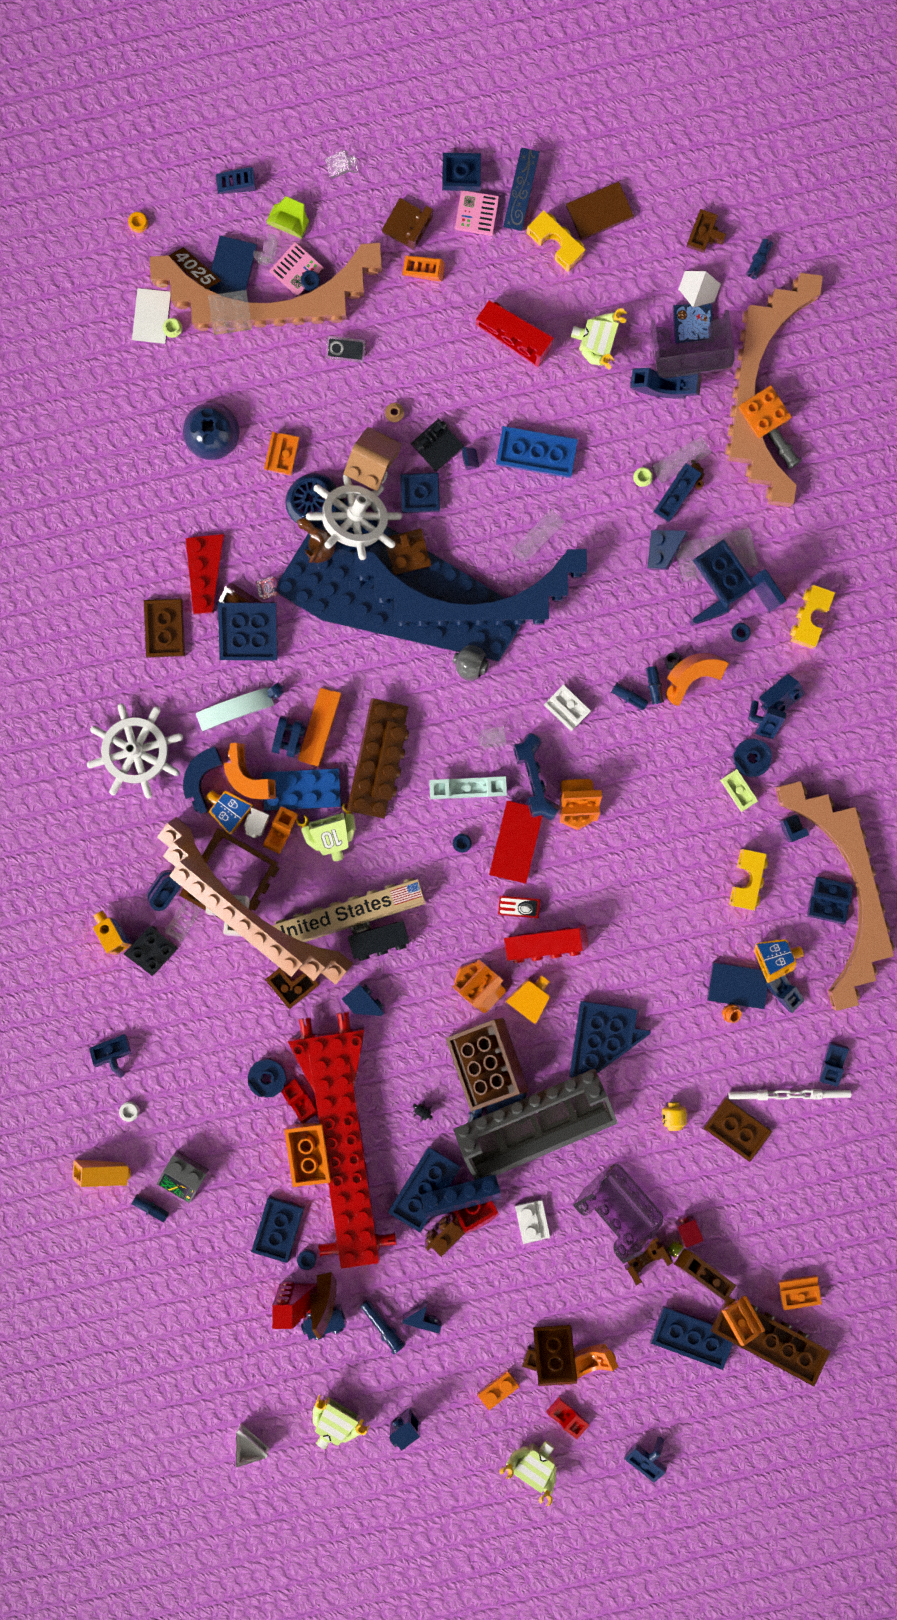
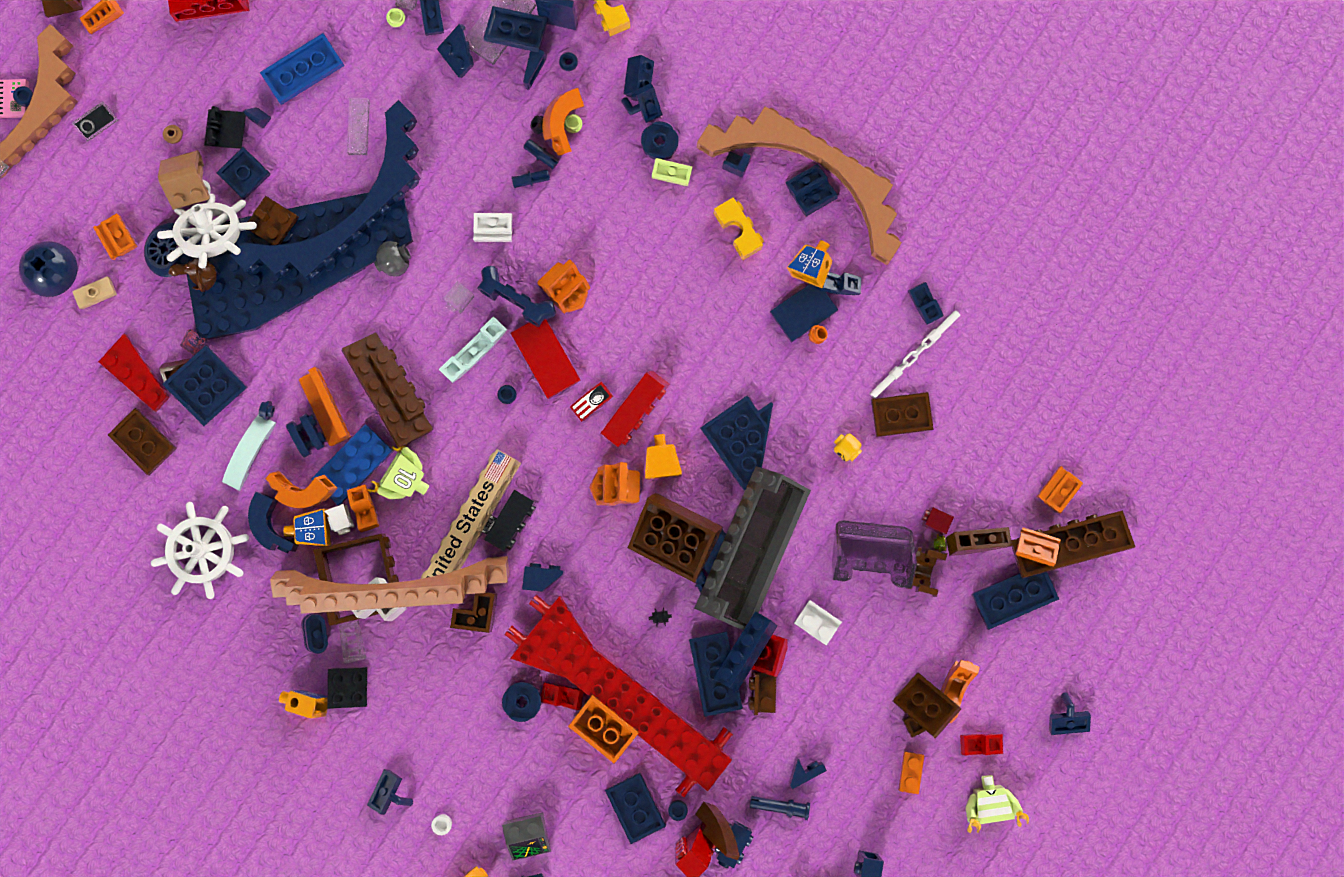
camera: 50 degrees left, 5 degrees down
(228, 482) = (94, 293): none -> tan plate
(700, 685) = (573, 123): none -> yellowish green plate

